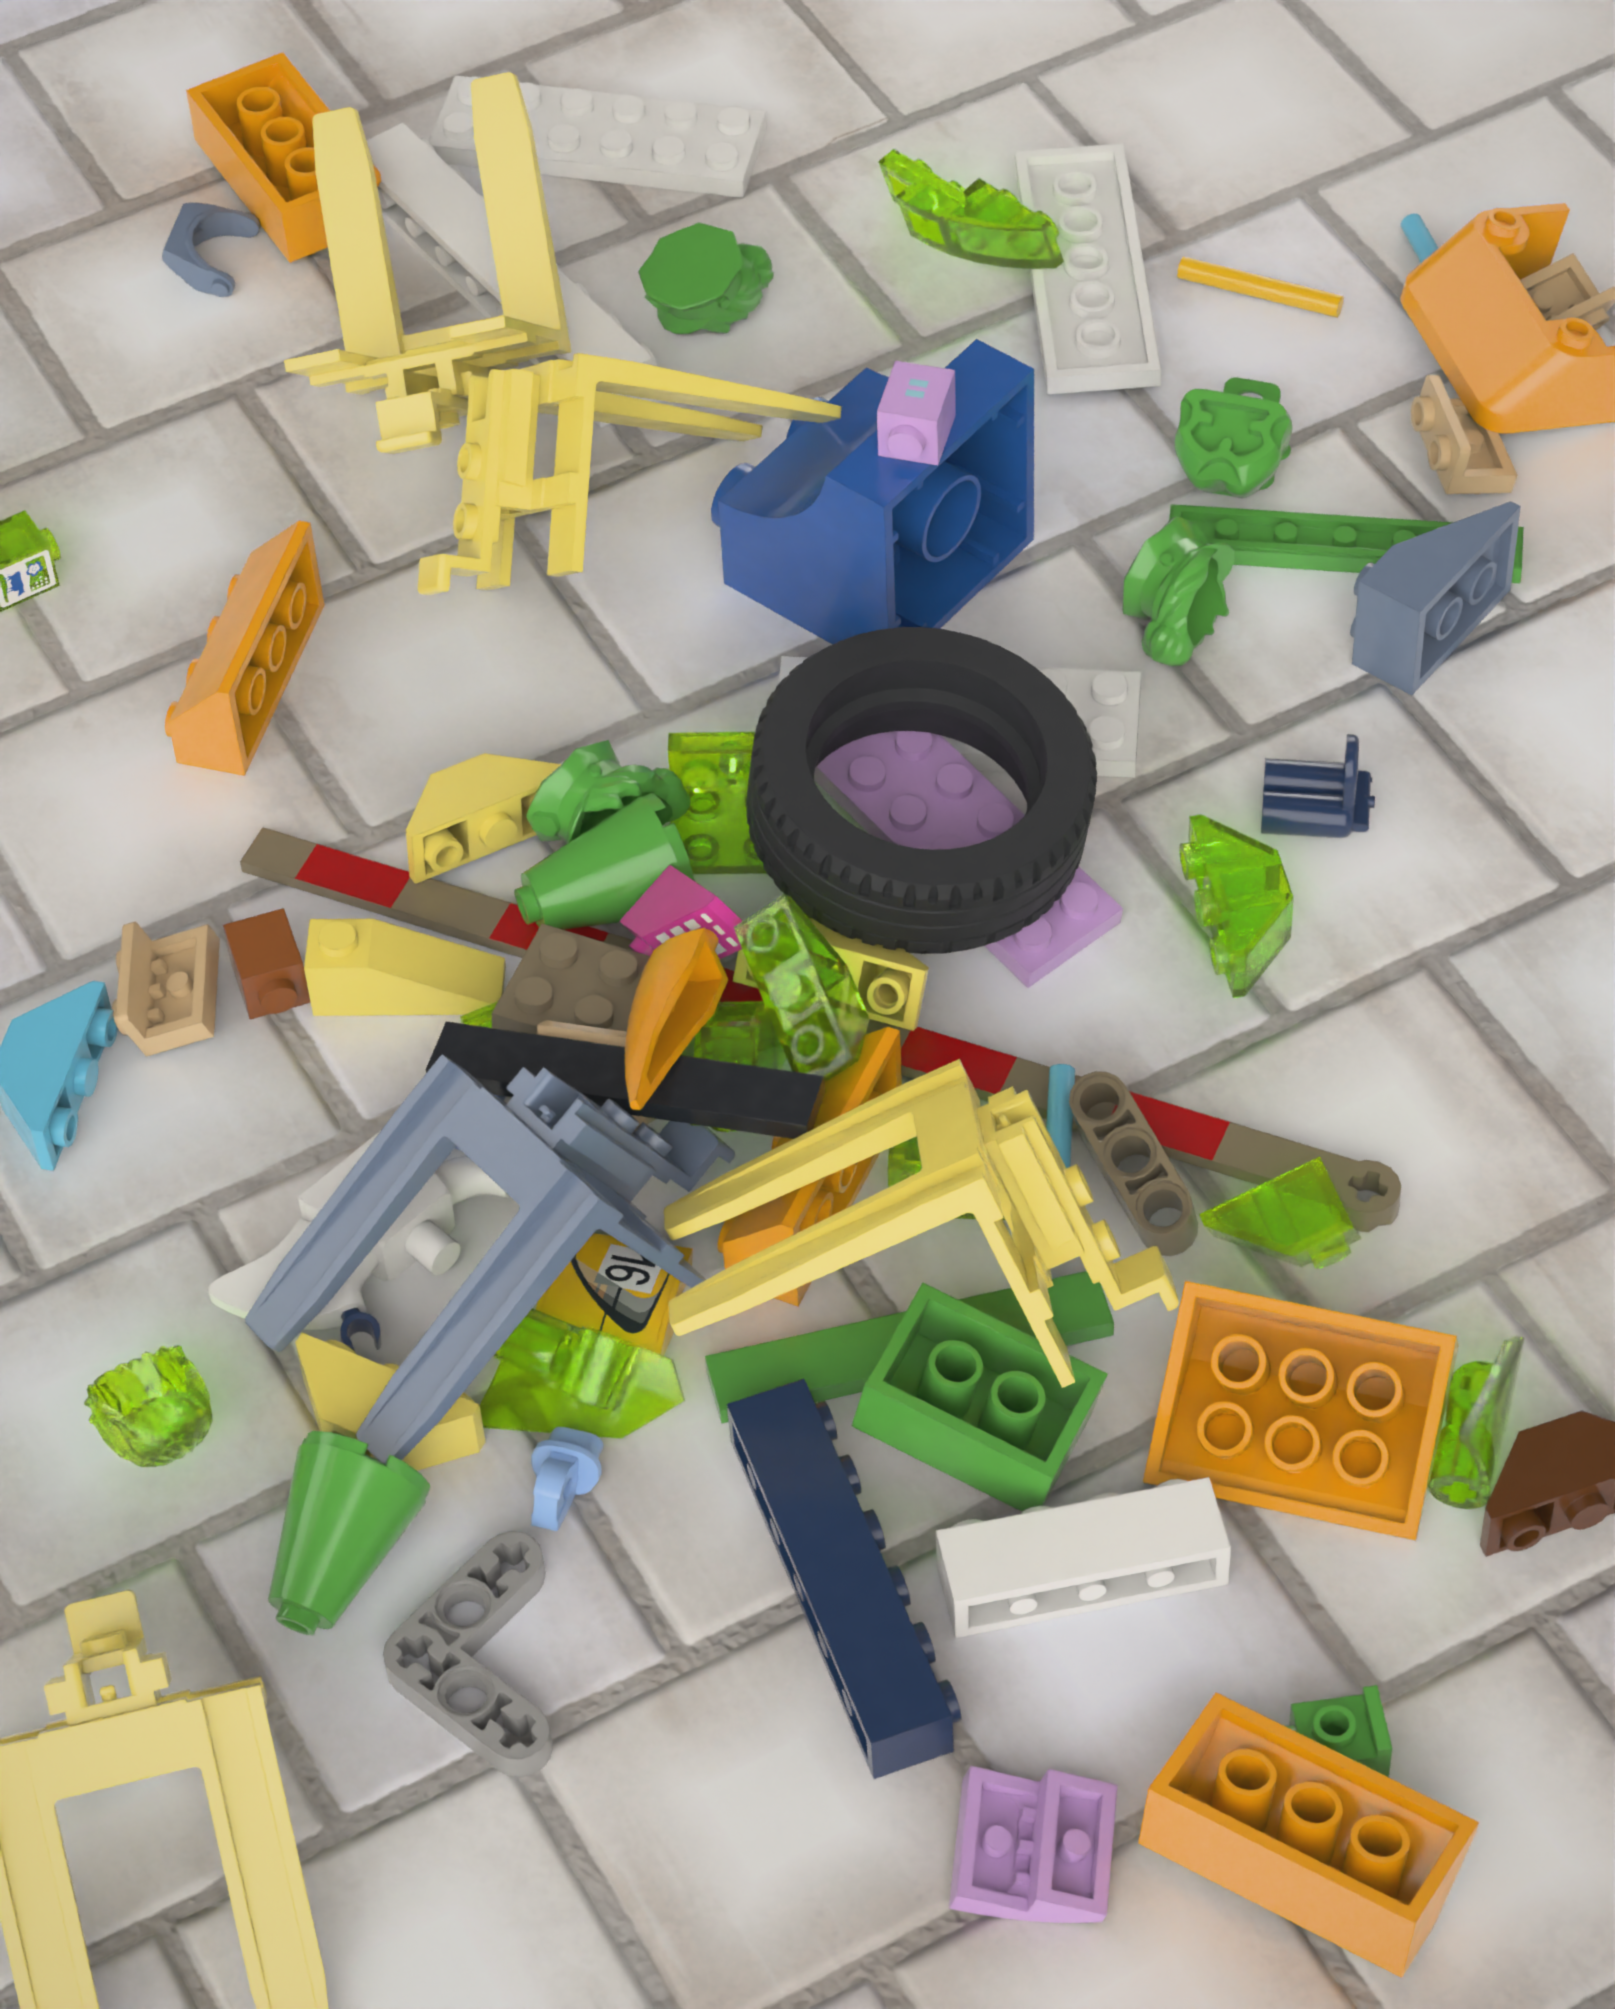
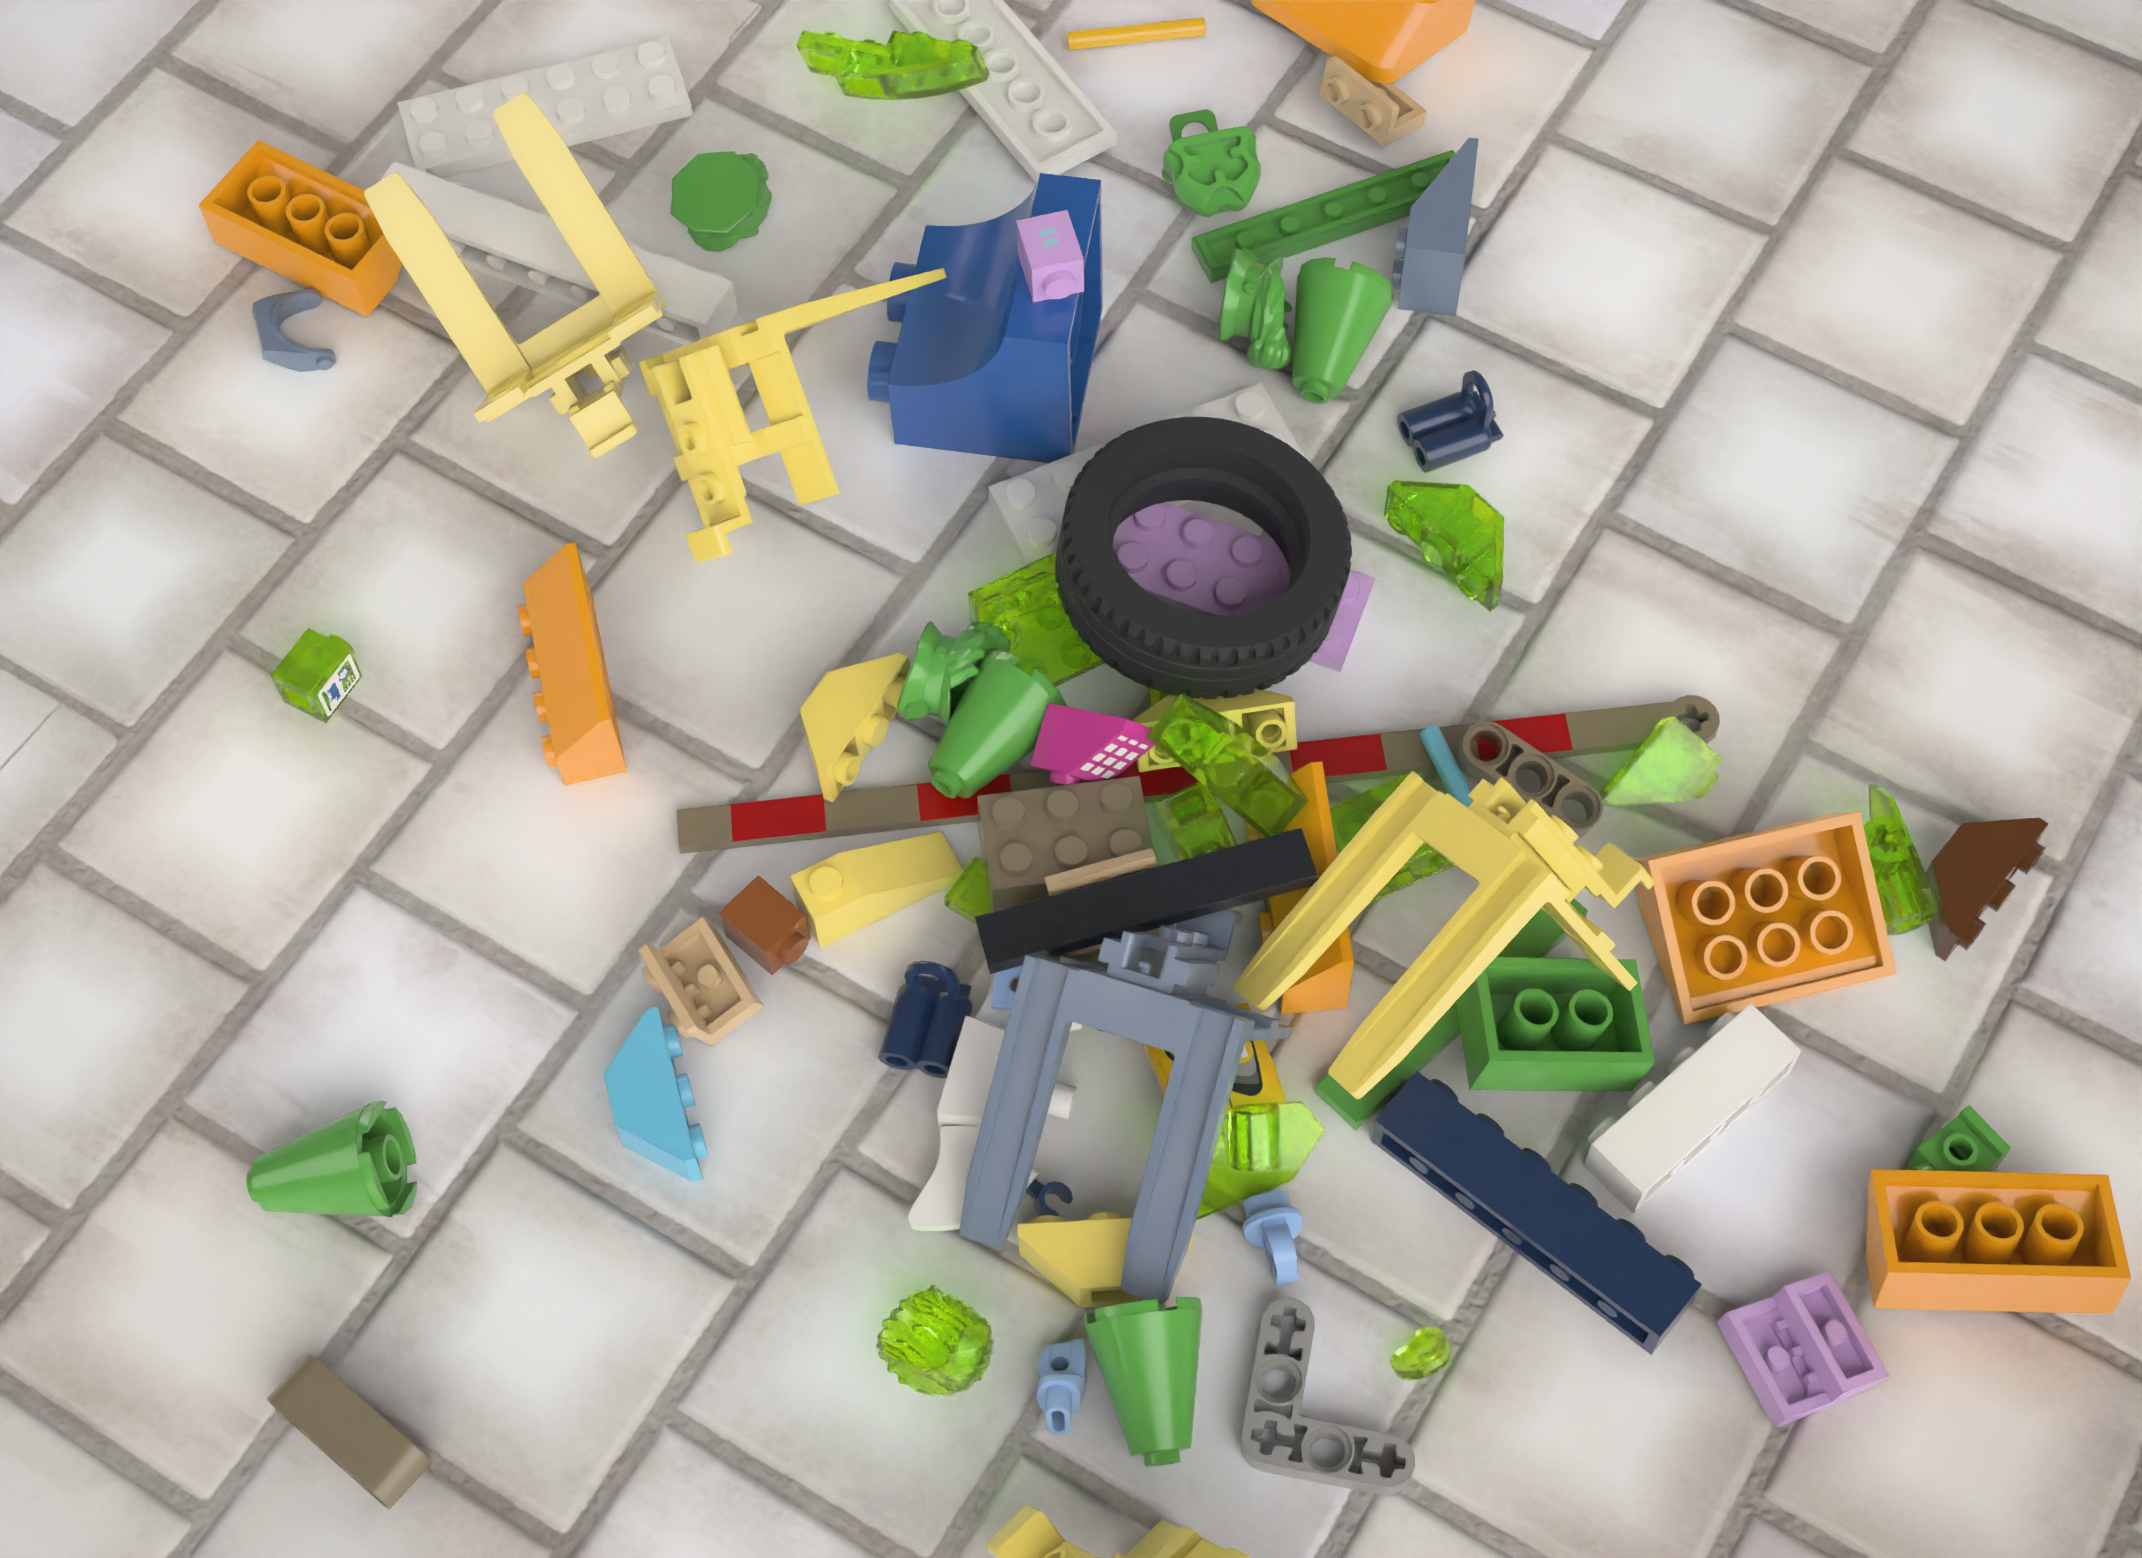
camera: 30 degrees left, 10 degrees up
(248, 1509) = (1061, 1391): none -> light blue piece
(353, 1111) = (926, 1020): none -> dark blue piece
(628, 1656) = (1423, 1355): none -> clear neon green piece
(669, 1008) = (1144, 828): light orange piece -> none
(1252, 642) = (1334, 324): none -> bright green cone

